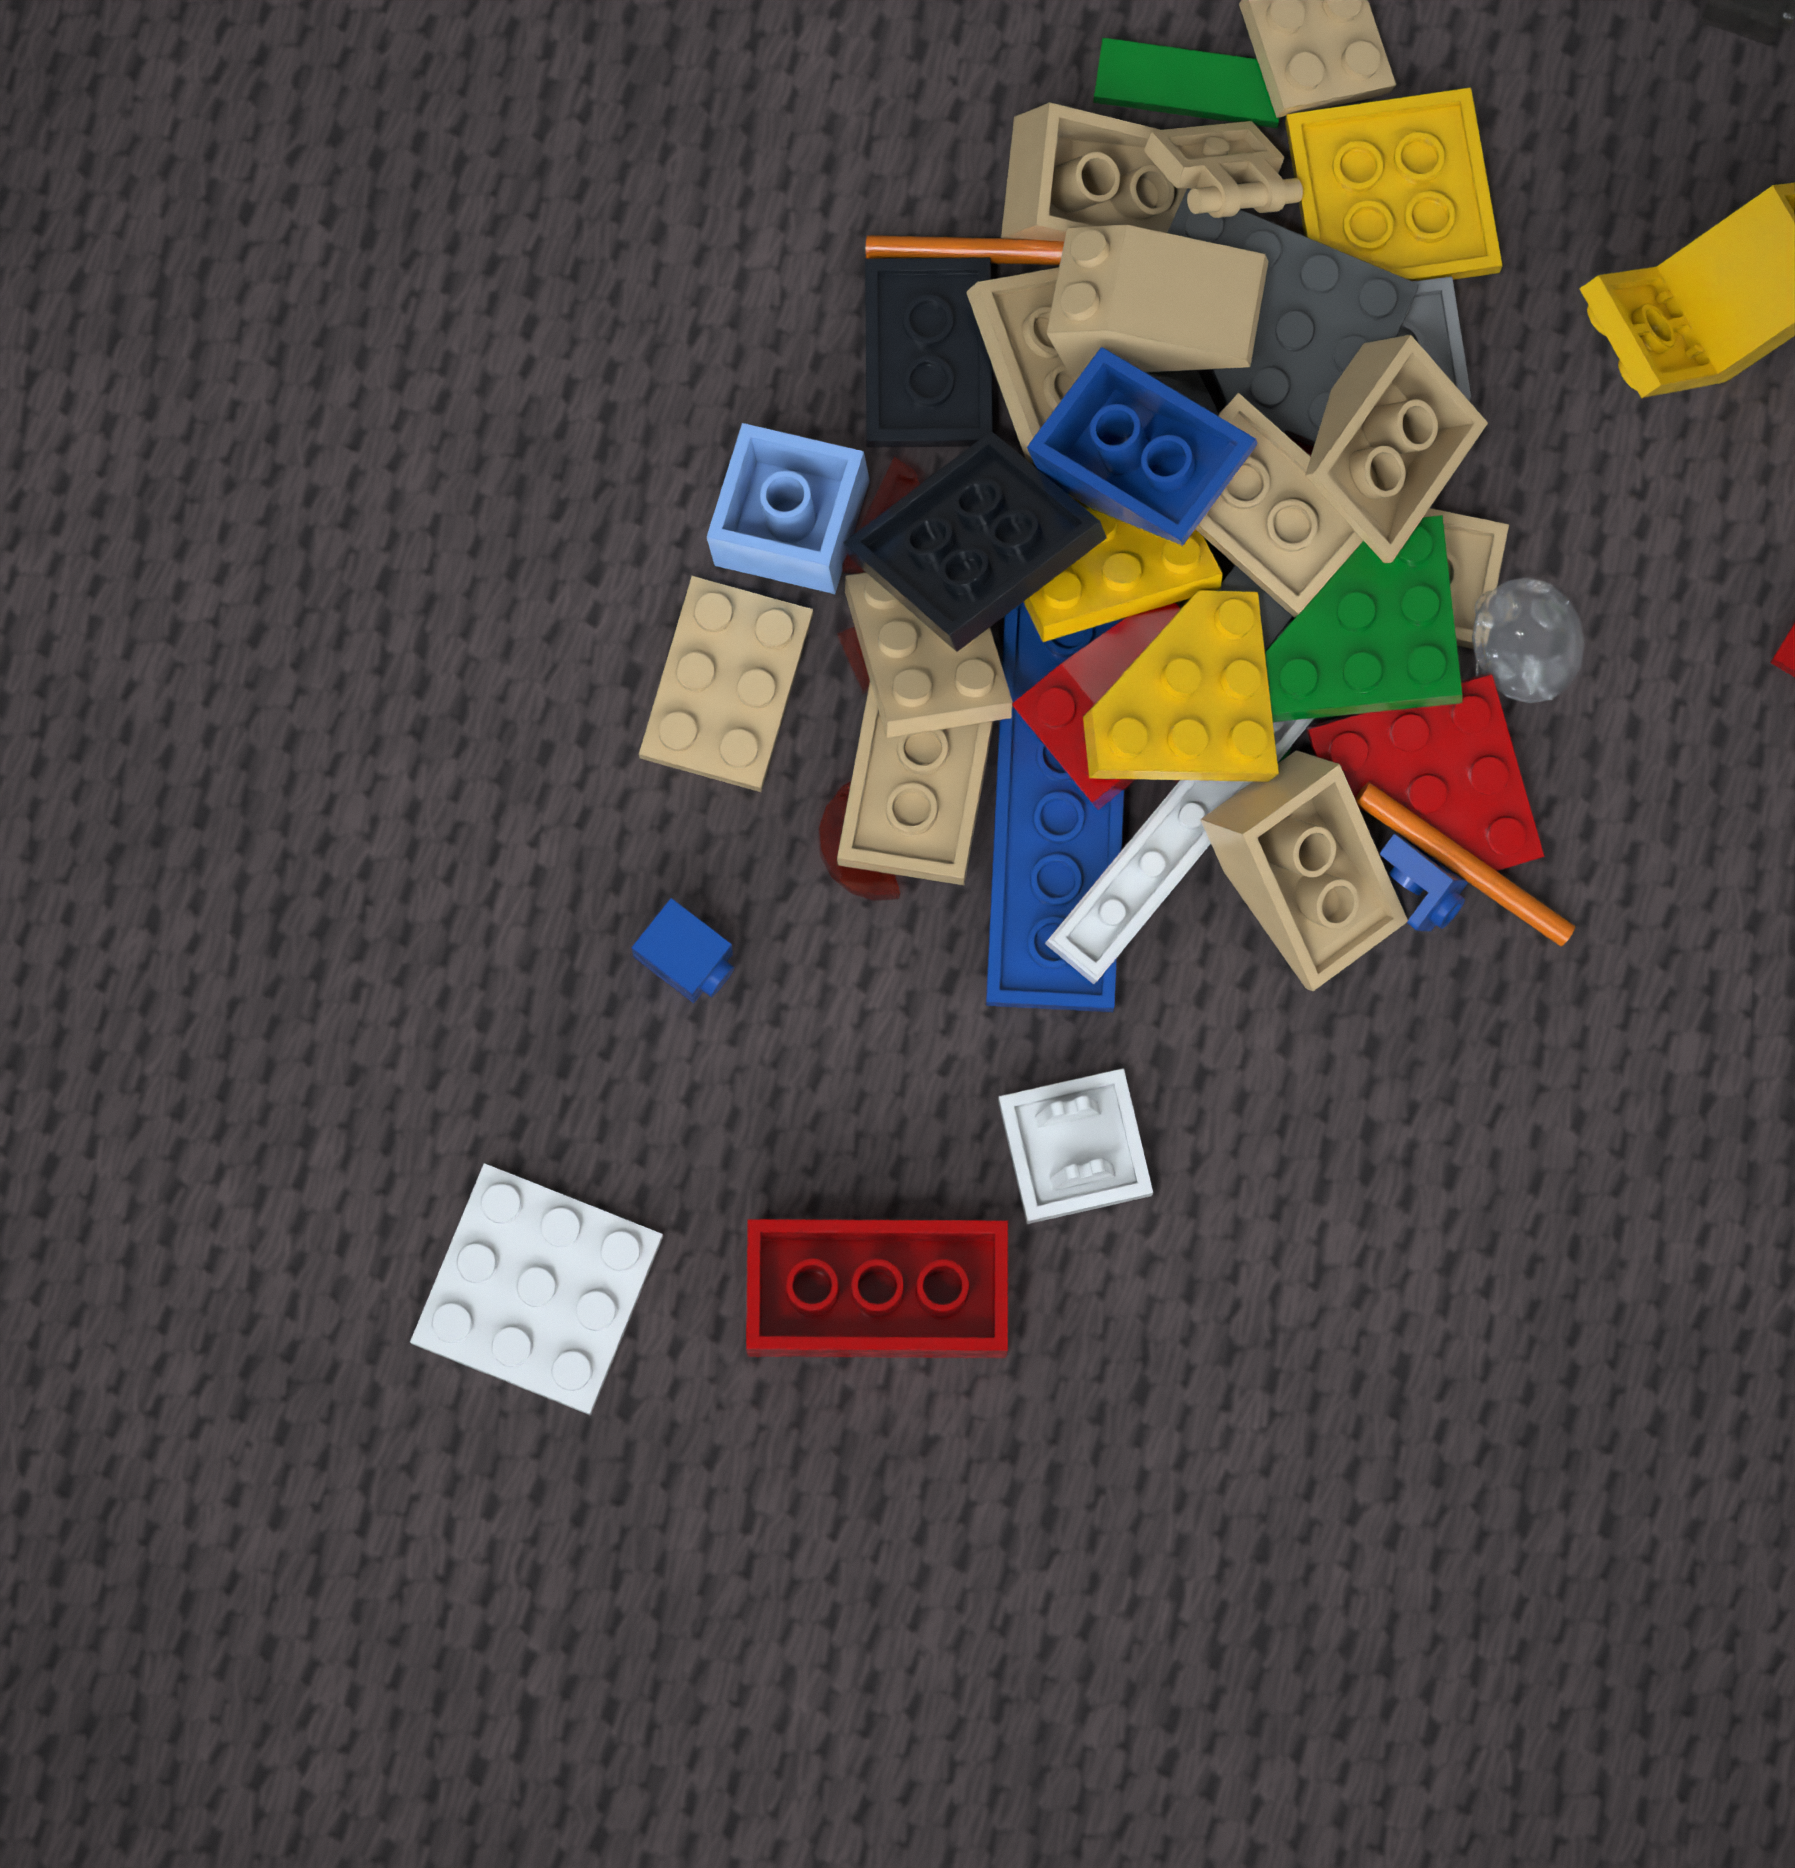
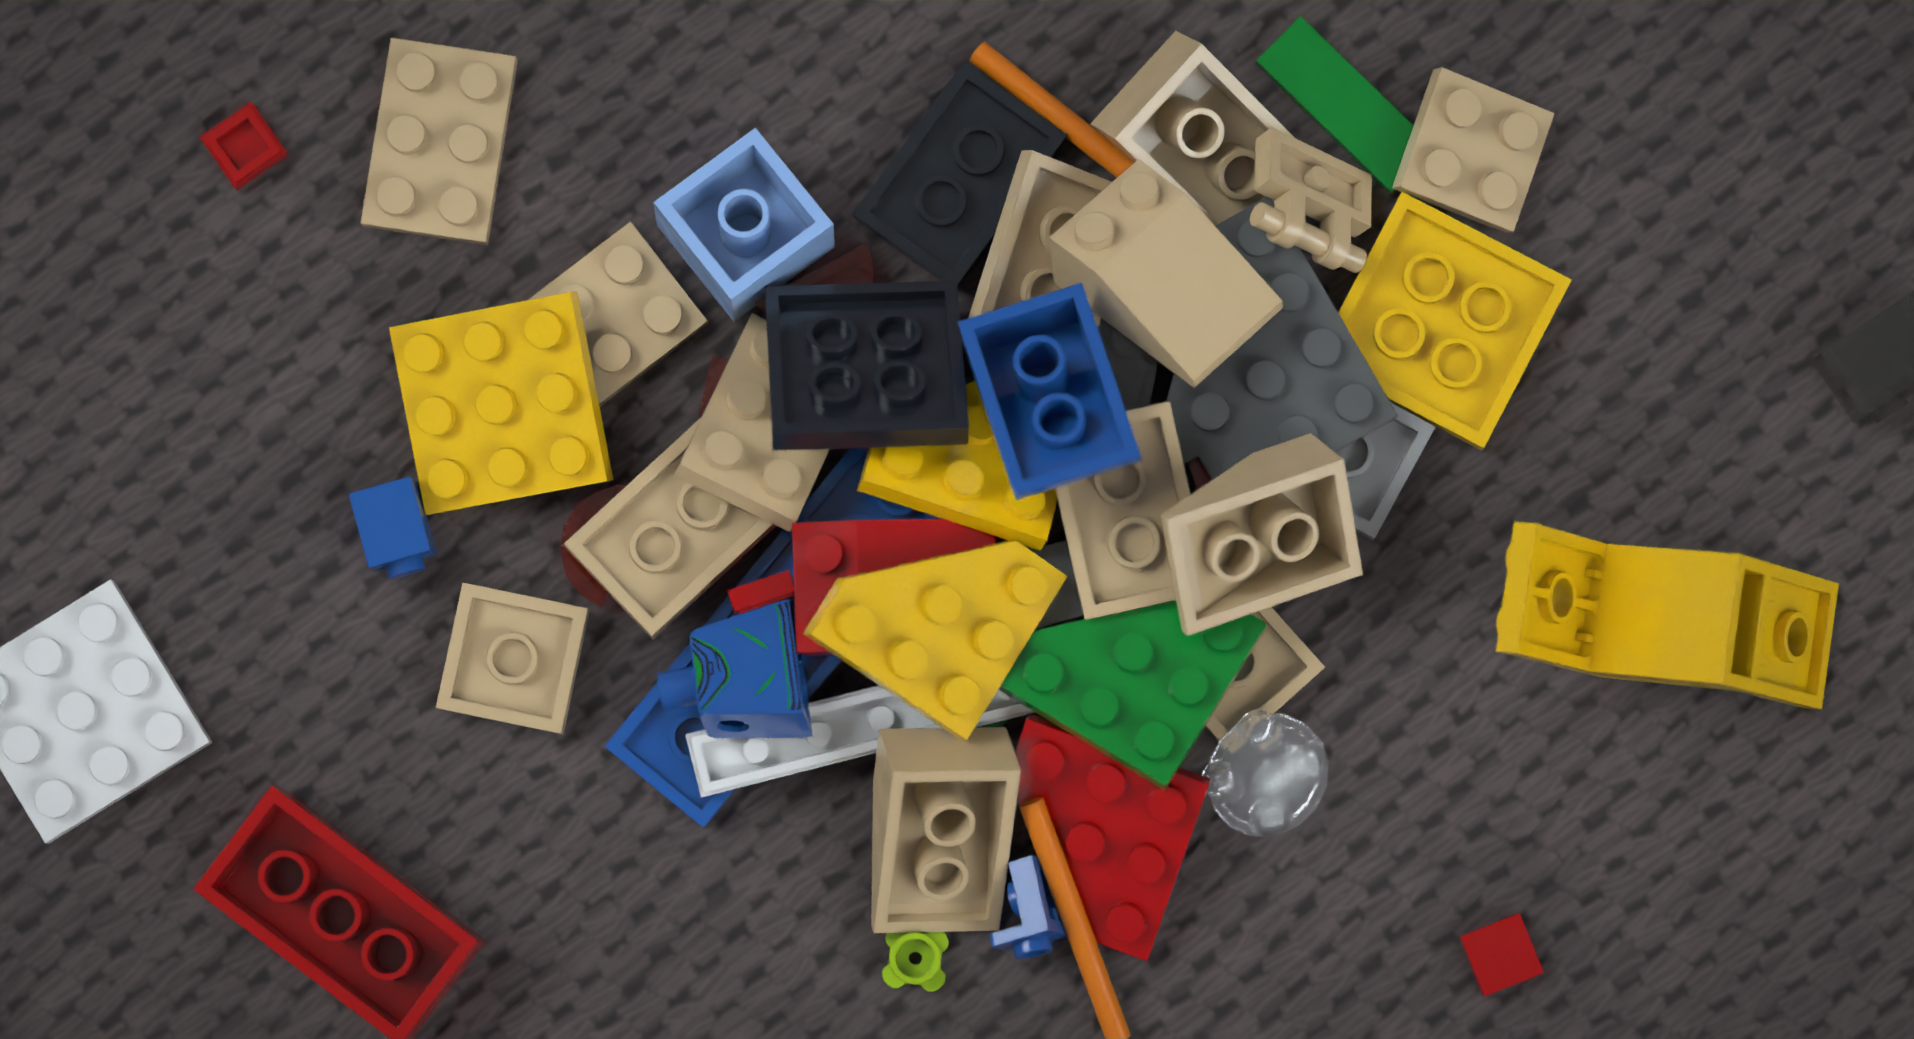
camera: 45 degrees right, 5 degrees up
(331, 742) = (244, 145): none -> red tile
(488, 625) = (439, 141): none -> tan plate
(698, 790) = (501, 403): none -> yellow plate
(859, 988) = (512, 658): none -> tan plate
(1026, 783) = (762, 592): none -> red tile
(1063, 856) = (744, 677): none -> blue torso
(1075, 1146) = (589, 915): white plate -> none
(1377, 993) = (927, 972): none -> lime plate

